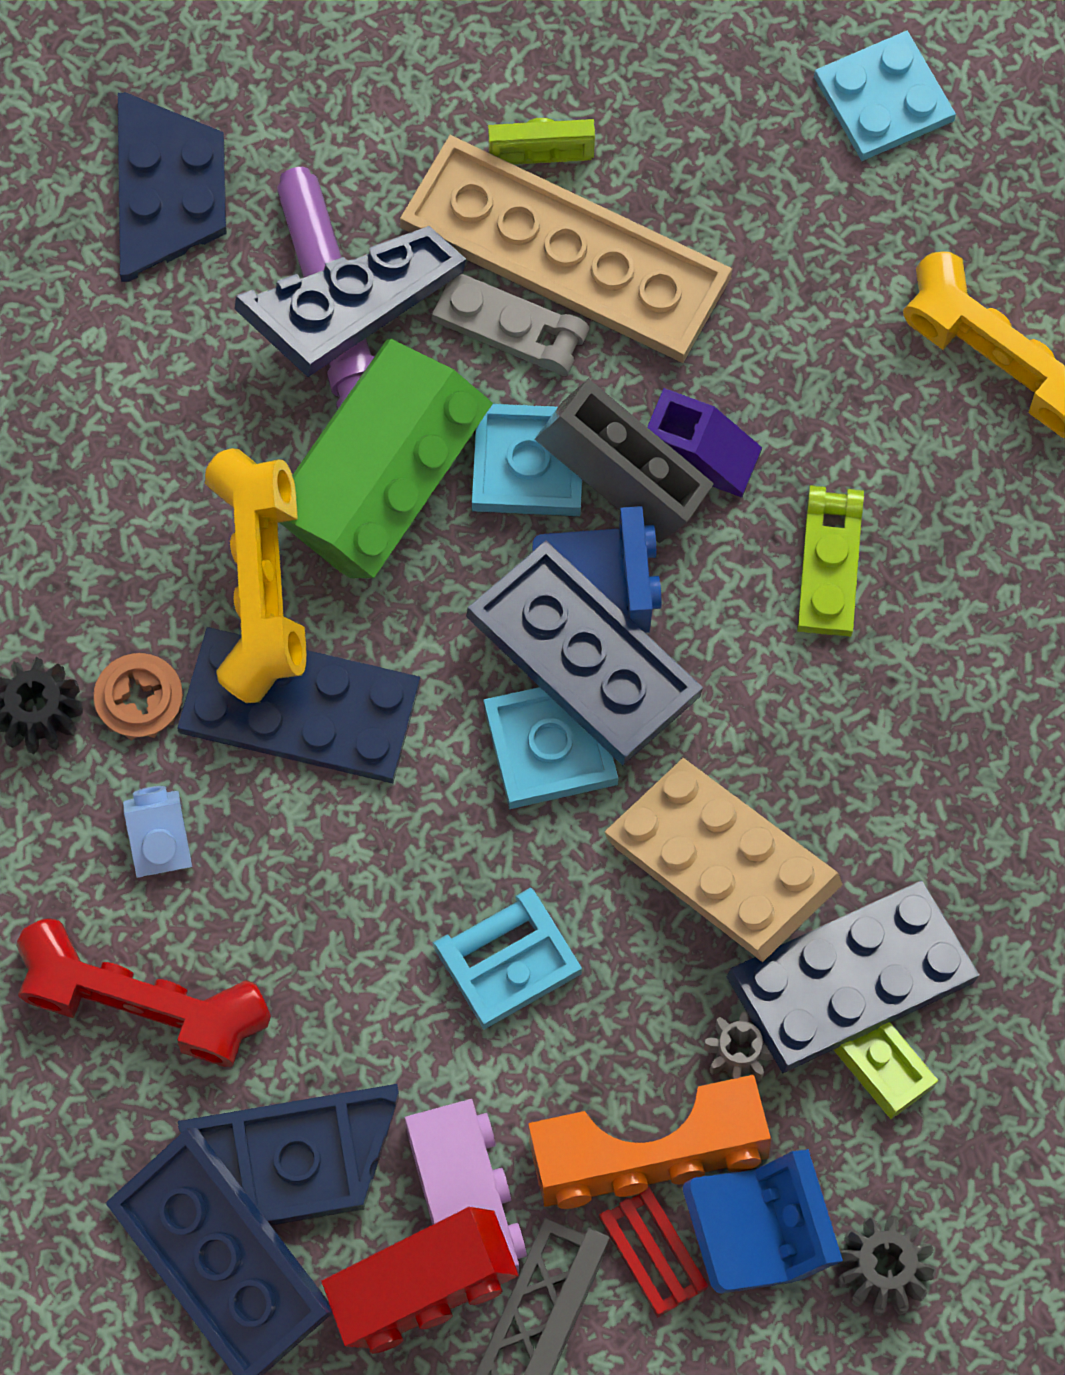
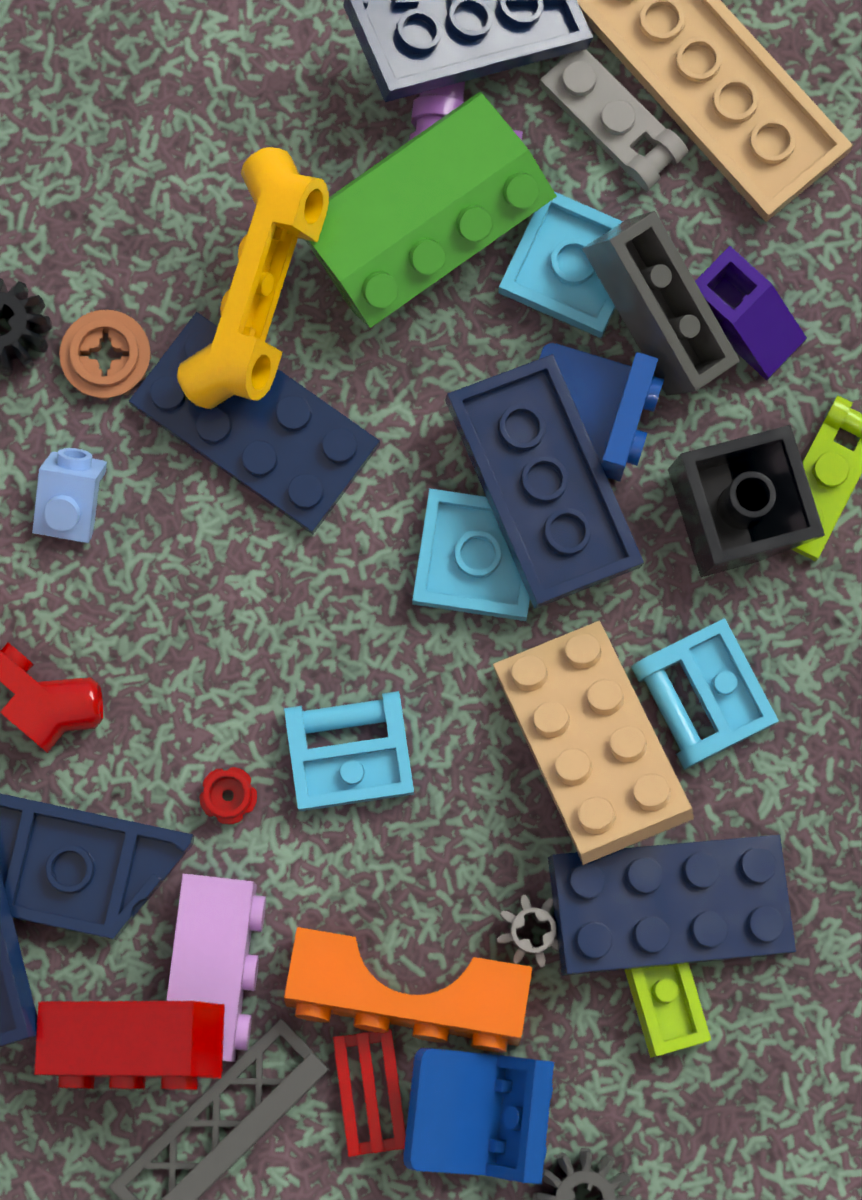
camera: 25 degrees right, 10 degrees up
(413, 1025) = (212, 797): none -> red plate
(767, 603) = (745, 500): none -> black slope
(815, 771) = (722, 684): none -> medium azure plate

